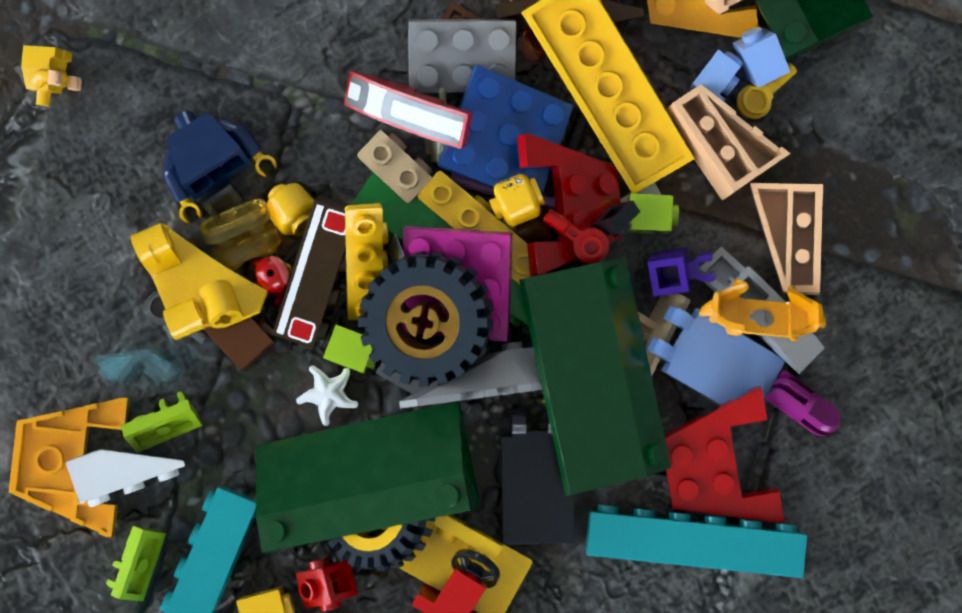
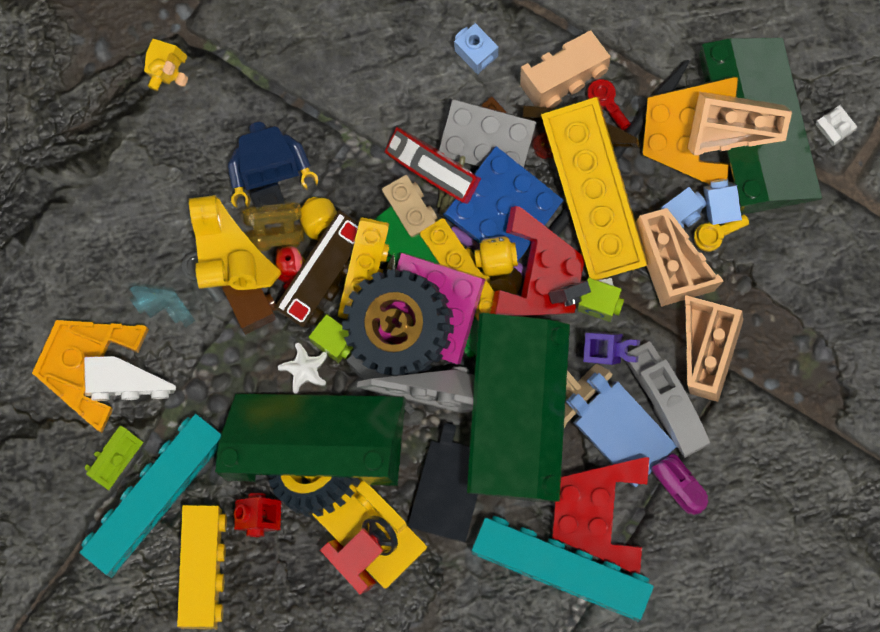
camera: 25 degrees right, 10 degrees down
(161, 426) = (167, 356): lime plate -> none
(588, 243) = (542, 304): red plate -> none
(790, 318) = (685, 406): light orange piece -> none

